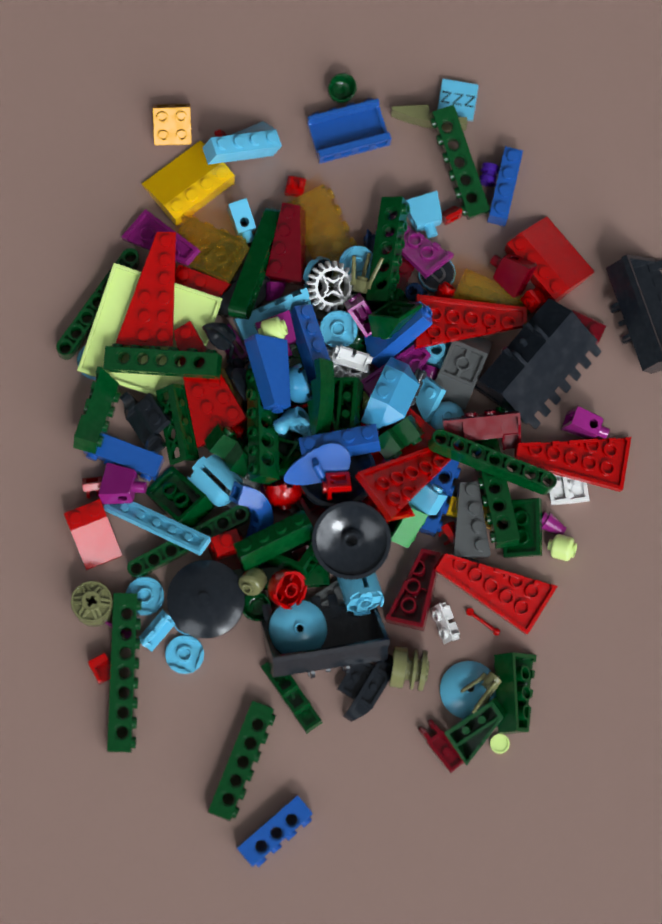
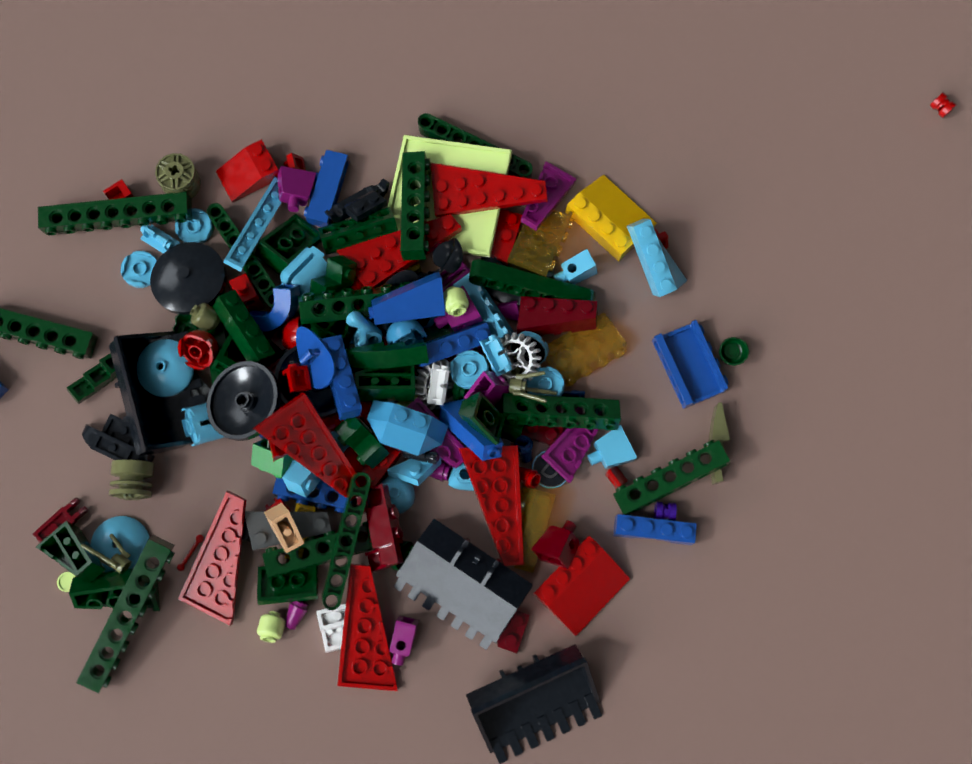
camera: 90 degrees right, 0 degrees up
(97, 412) = (361, 155): dark green wedge -> none
(172, 124) = (669, 193): bracket -> none
(295, 186) = (623, 319): red tile -> none
(322, 302) = (499, 363): none -> medium azure hinge
(414, 599) = (209, 480): dark red wedge -> none
(447, 631) = (178, 517): white hinge -> none
(460, 94) = (744, 472): medium azure tile -> none
(462, 369) = (449, 503): dark grey slope -> none
(474, 518) = (284, 527): none -> light nougat slope
(485, 640) = (91, 676): none -> dark green brick
(533, 299) = (534, 572): red bracket -> none

